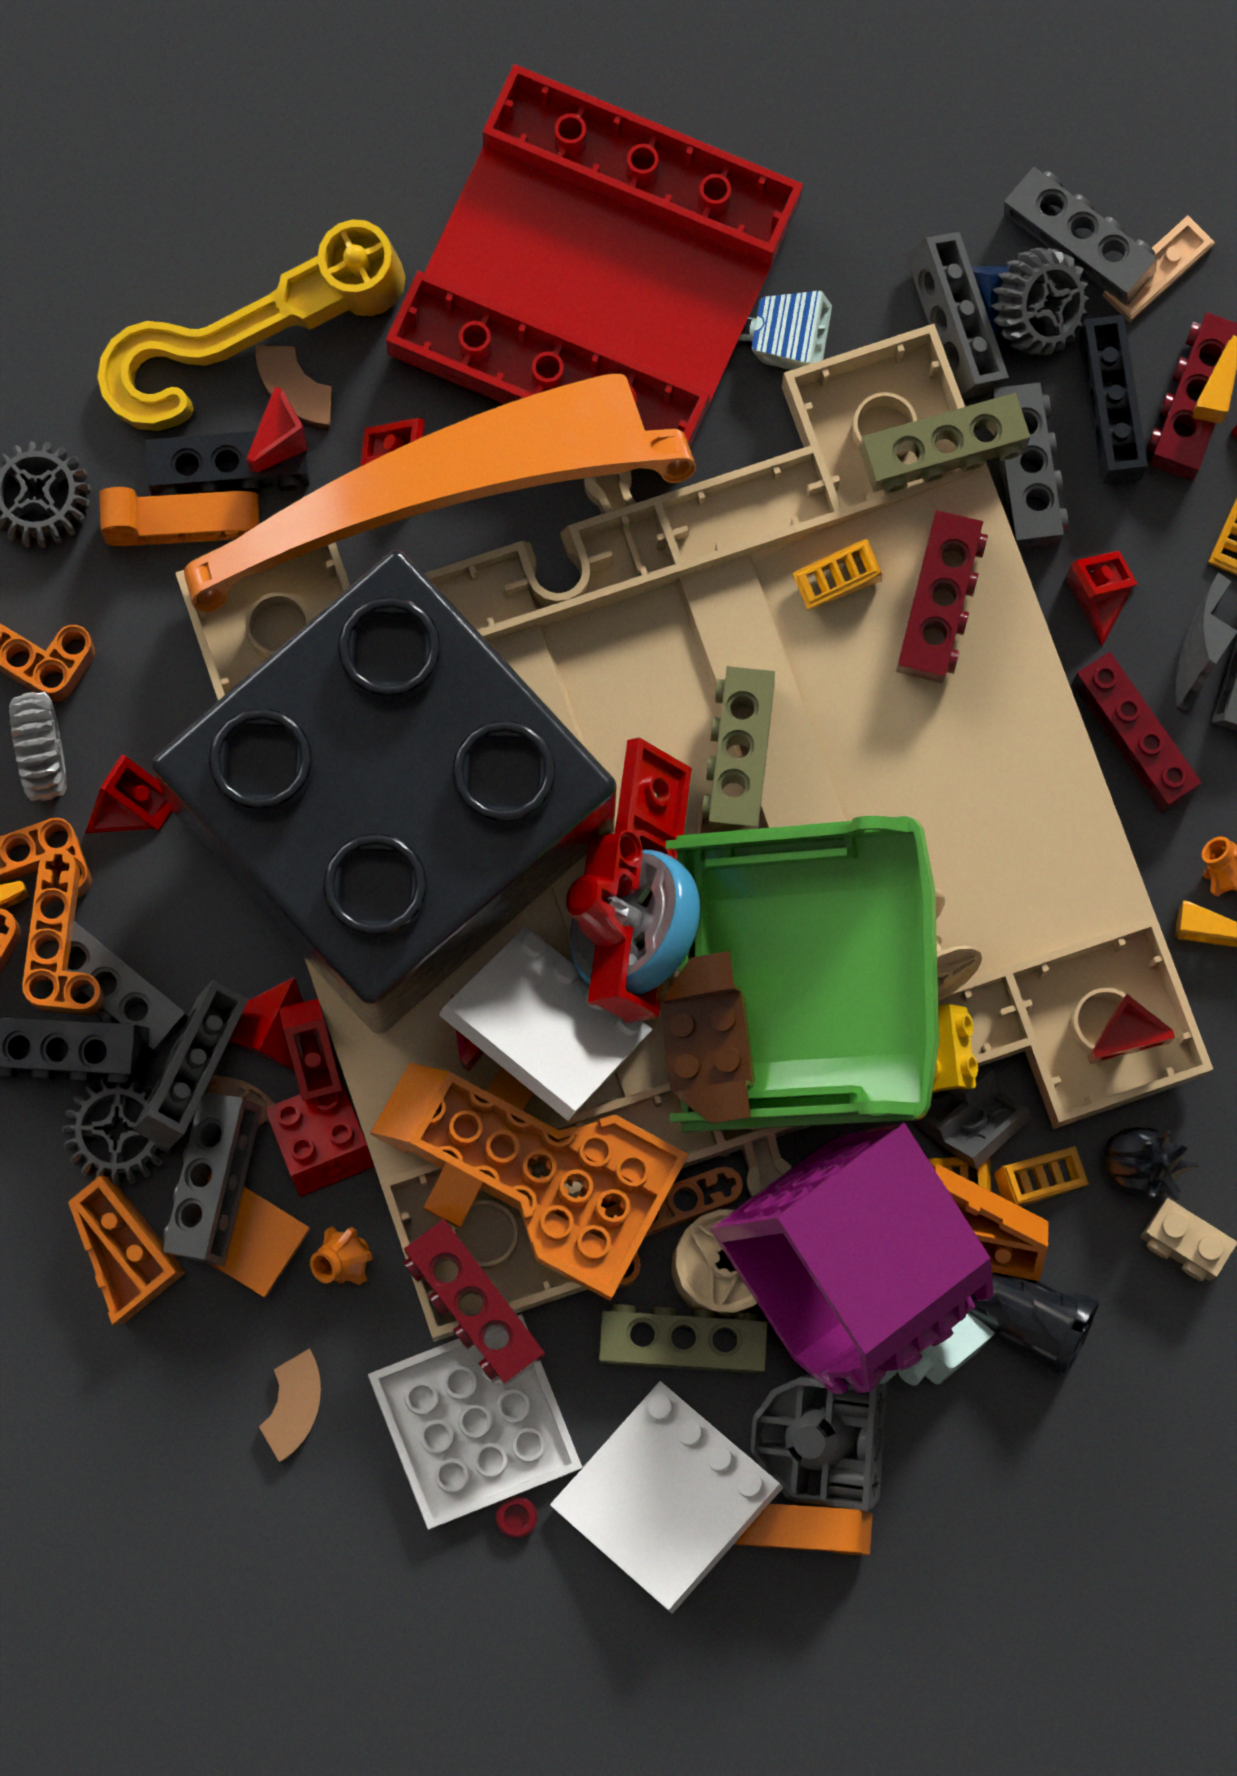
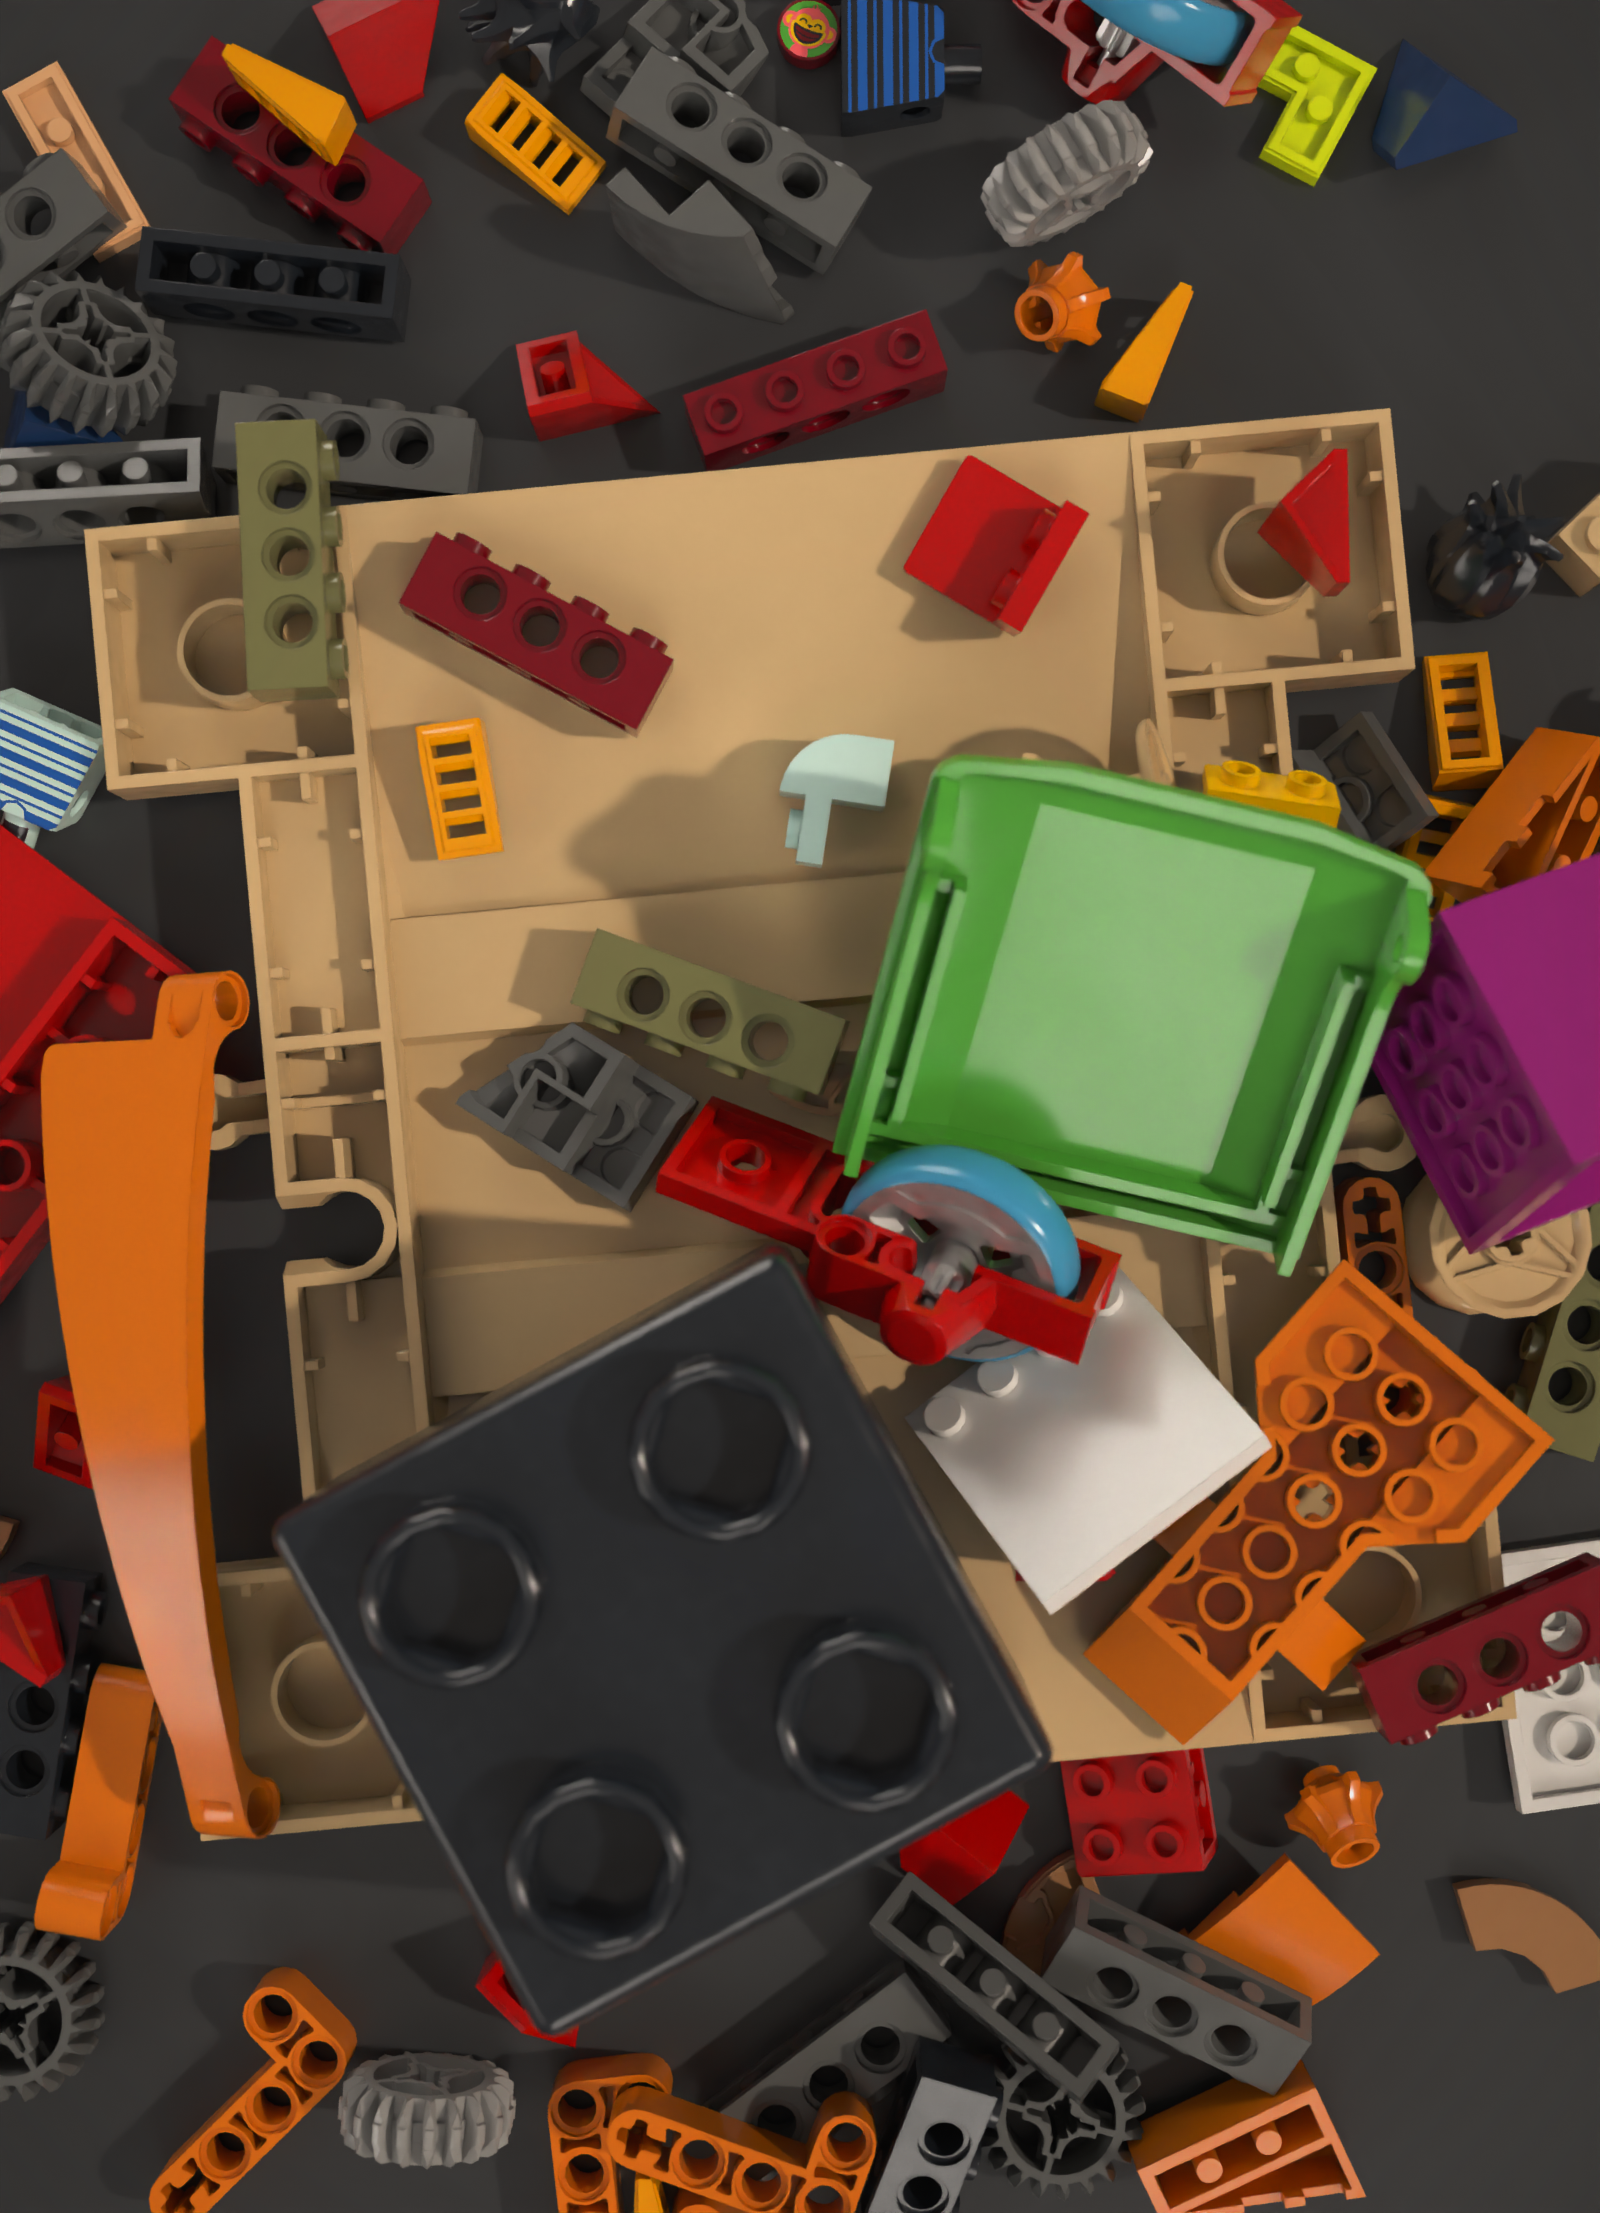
camera: 70 degrees left, 10 degrees up
(310, 1049) = (1041, 1805): red brick -> none
(663, 695) = (586, 1112): none -> dark grey slope
(708, 1039) = (1192, 1186): reddish brown piece -> none
(900, 784) = (833, 771): none -> light aqua brick
(1065, 849) = (994, 545): none -> red bracket

